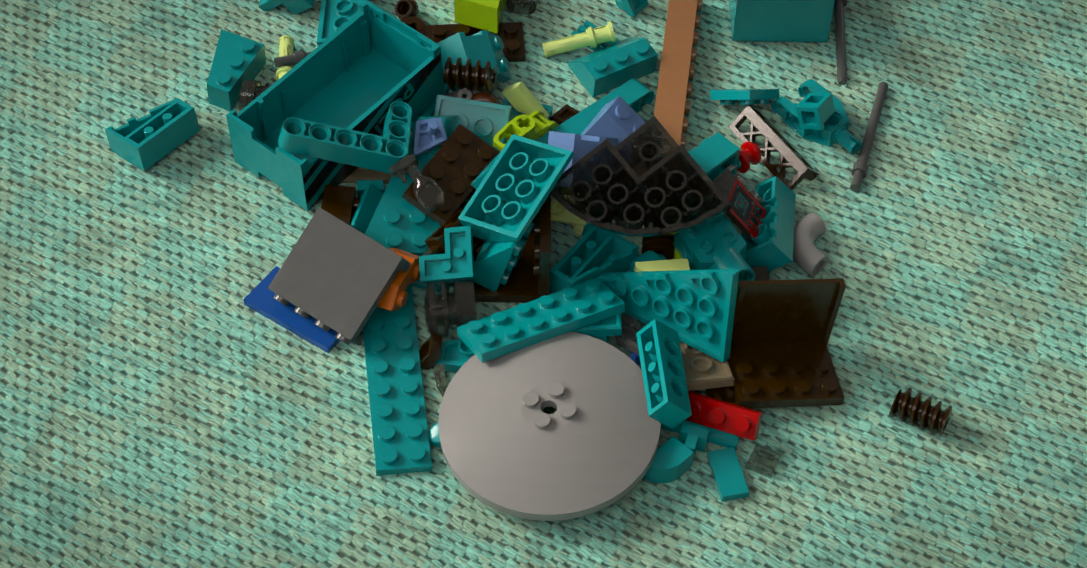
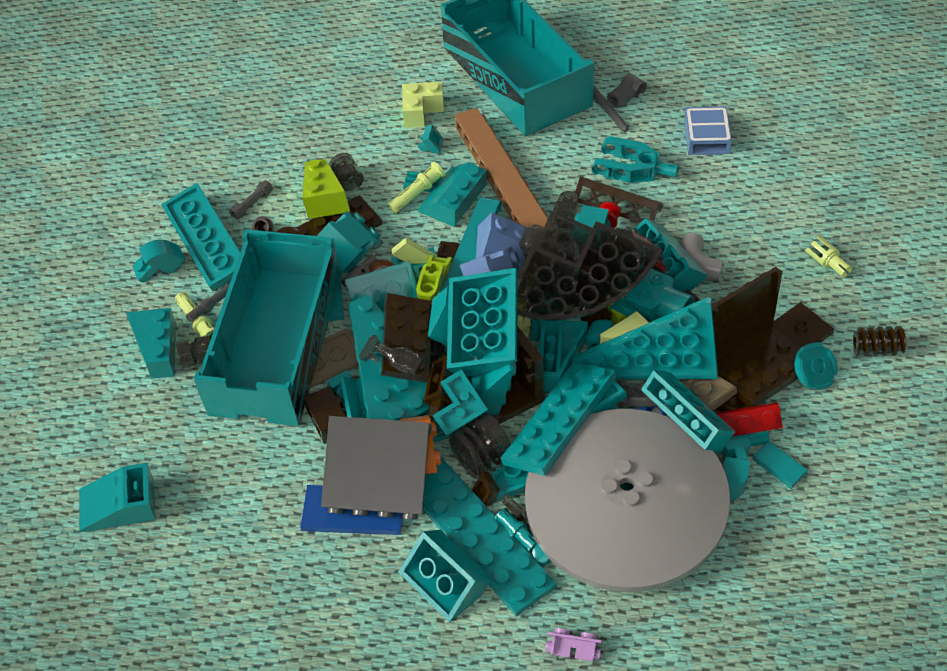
camera: 25 degrees left, 0 degrees up
(106, 194) = (118, 499): none -> teal slope
(154, 135) = (126, 428): teal wedge -> none
(338, 404) = (444, 574): none -> teal slope
(348, 145) = (316, 354): teal beam -> none
(398, 517) = (563, 642): none -> lavender hinge
(428, 135) = (369, 314): medium blue piece -> none
(431, 400) = (516, 529): none -> teal pin
(470, 75) = (360, 251): dark brown piece -> none
(716, 123) = (567, 204): none -> clear smoke leg
(746, 96) = (574, 170): teal plate -> none
(763, 461) = (796, 440): clear smoke tile -> none
(815, 110) = (635, 156): teal brick -> none
(835, 401) = (815, 366): none -> teal tile
(858, 362) = (802, 326): none -> dark brown plate
(860, 167) = (688, 184): dark grey bar -> none
(879, 40) = (630, 87): none -> dark grey piece
(923, 122) = (707, 130): none -> medium blue brick
(943, 306) = (830, 258): none -> yellowish green arm

